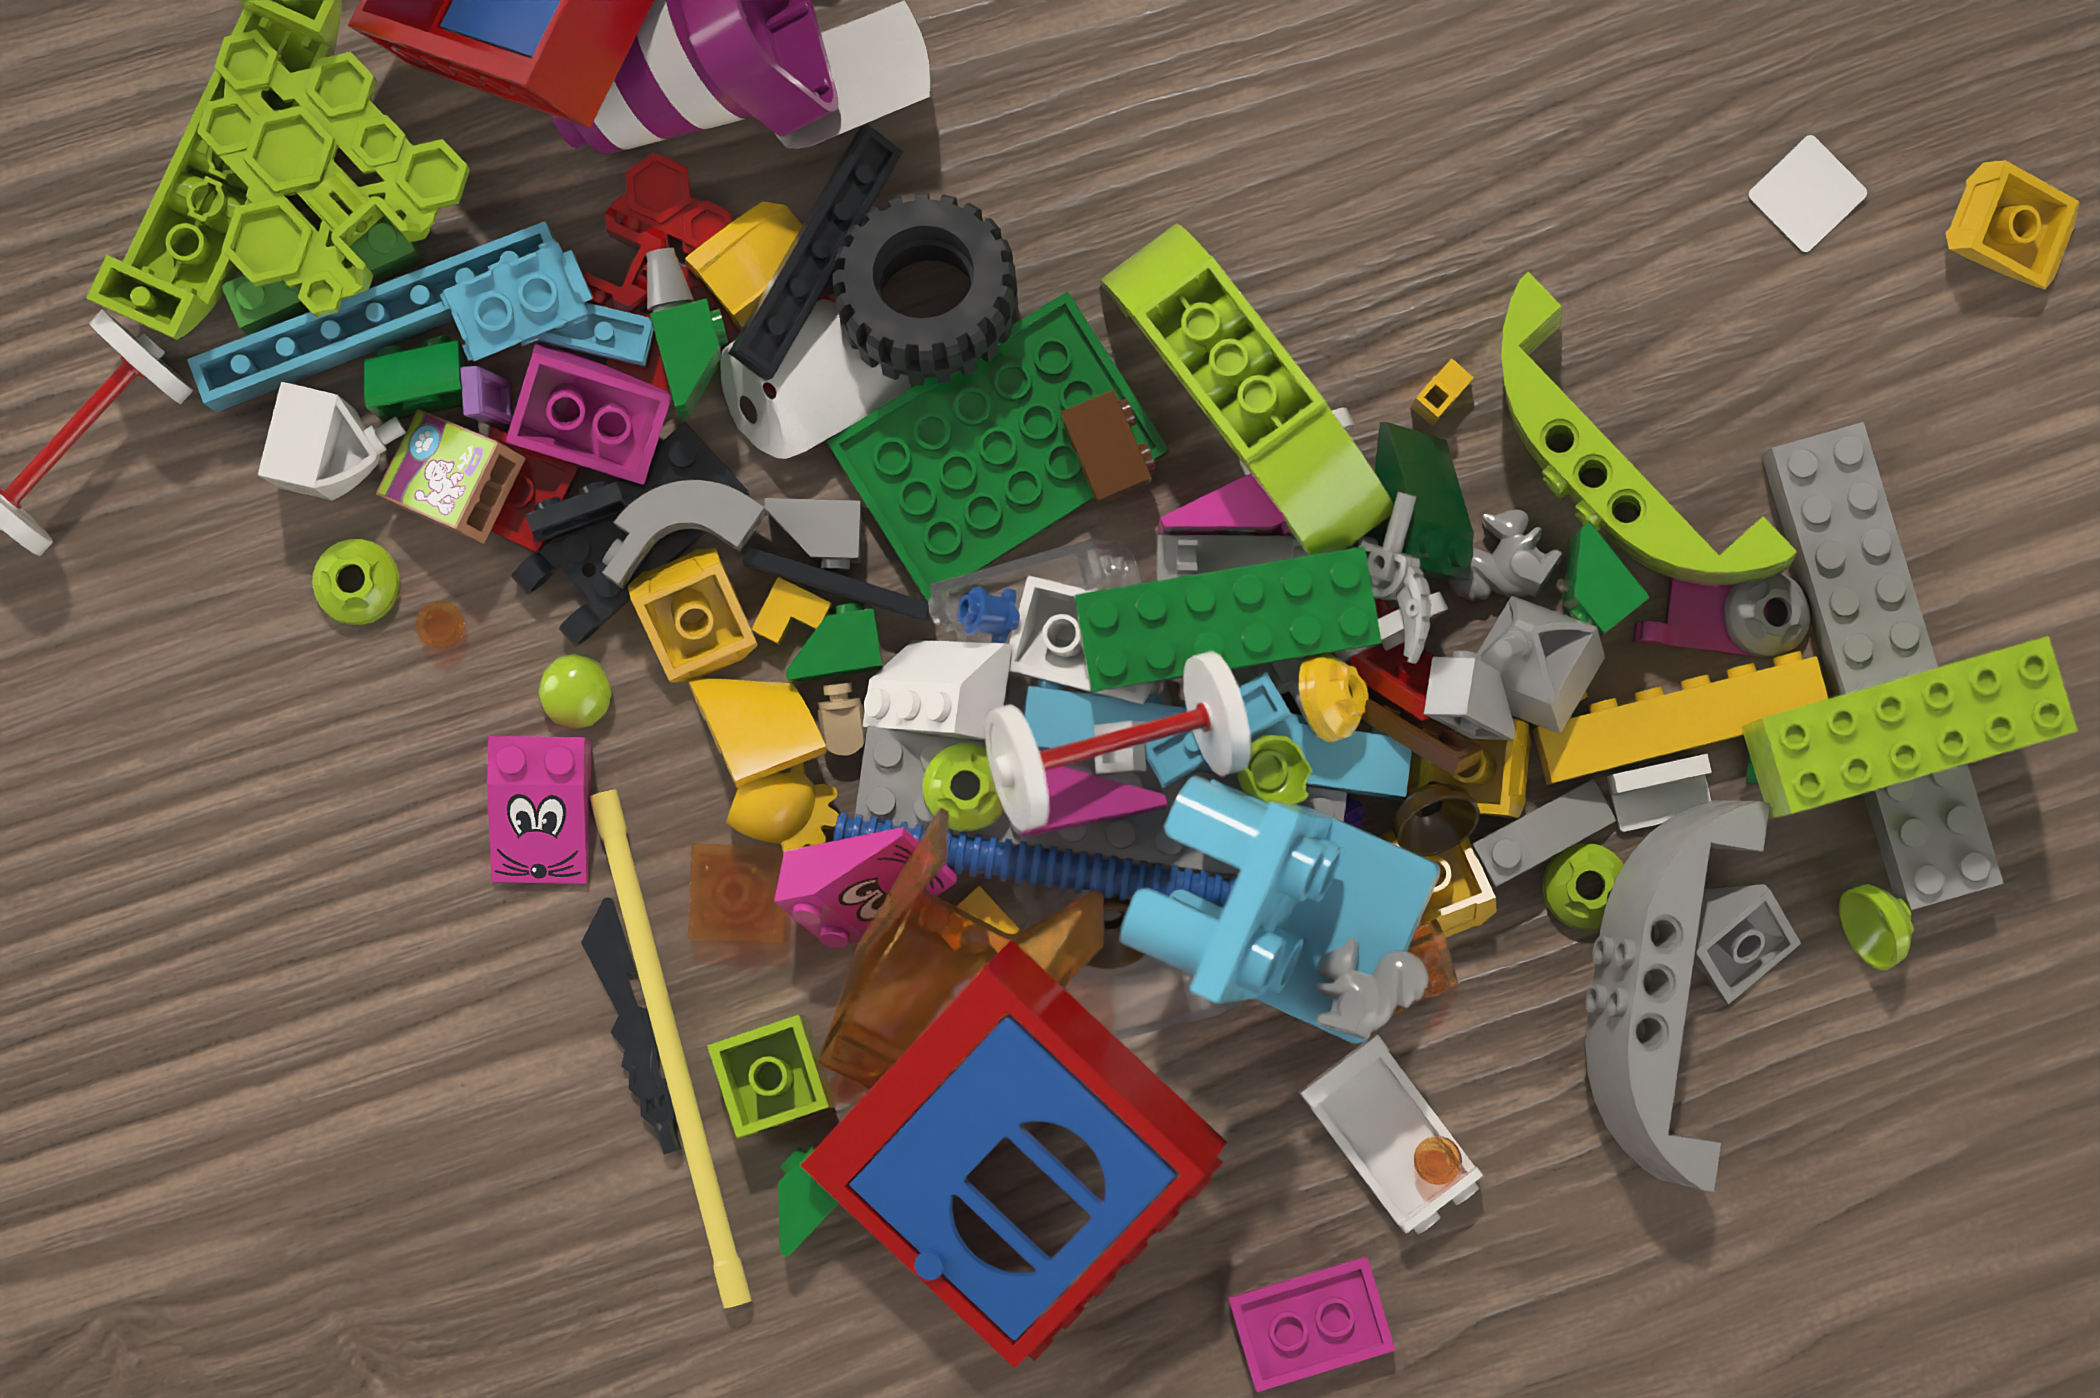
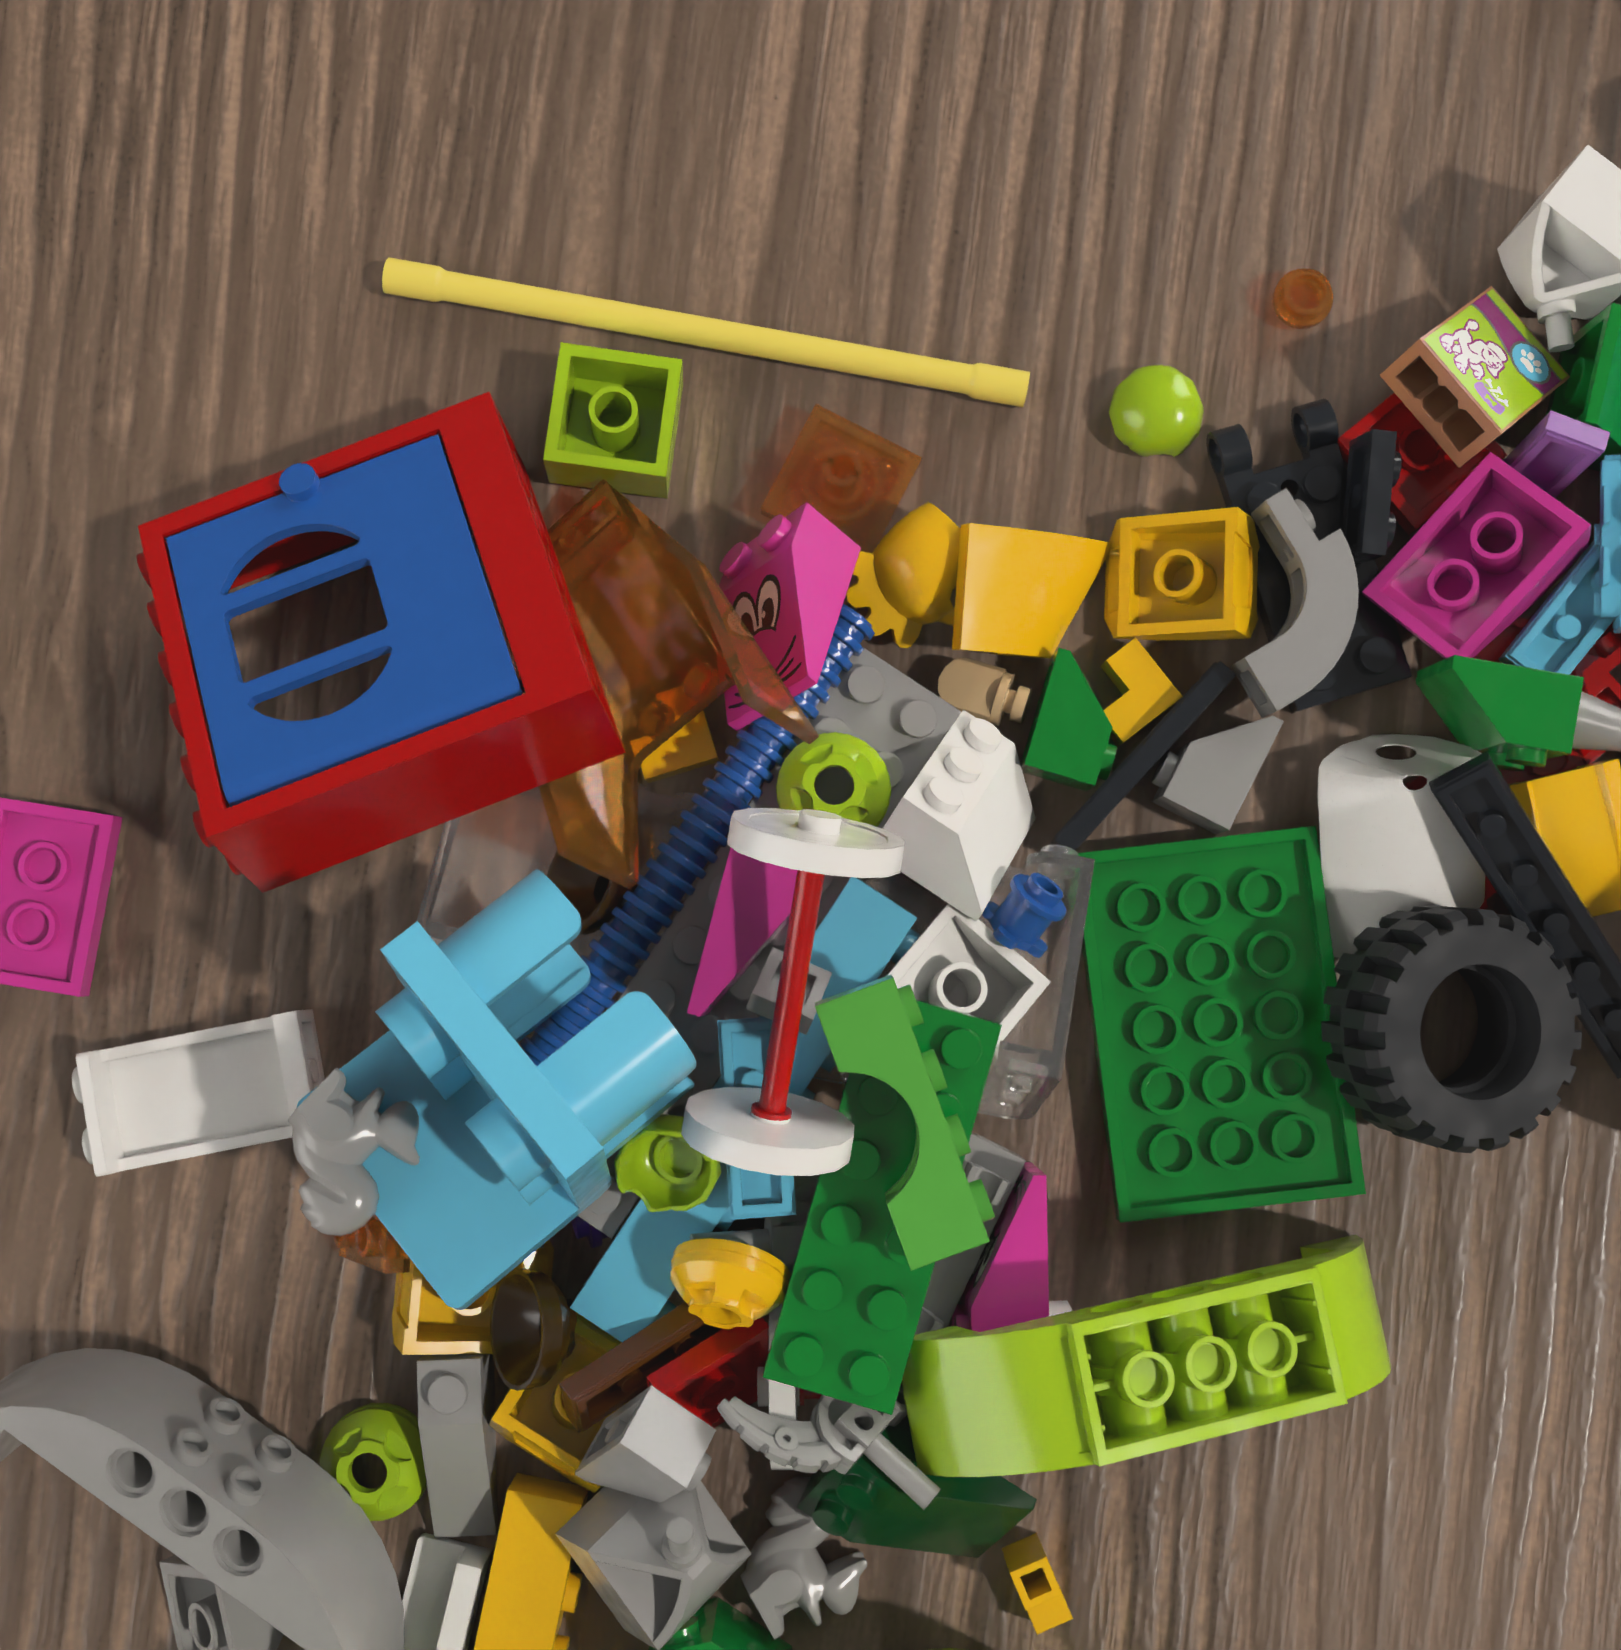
camera: 115 degrees right, 0 degrees up
(375, 596) = (1378, 249): lime piece -> none
(539, 809) = (1044, 309): dark pink slope -> none
(633, 1030) = (839, 317): black sword -> none
(801, 1203) = (451, 379): green slope -> none
(1107, 446) = (1160, 1152): reddish brown brick -> none
(1209, 585) = (932, 1200): none -> bright green arch
(1437, 1160) = (146, 1131): clear orange plate -> none

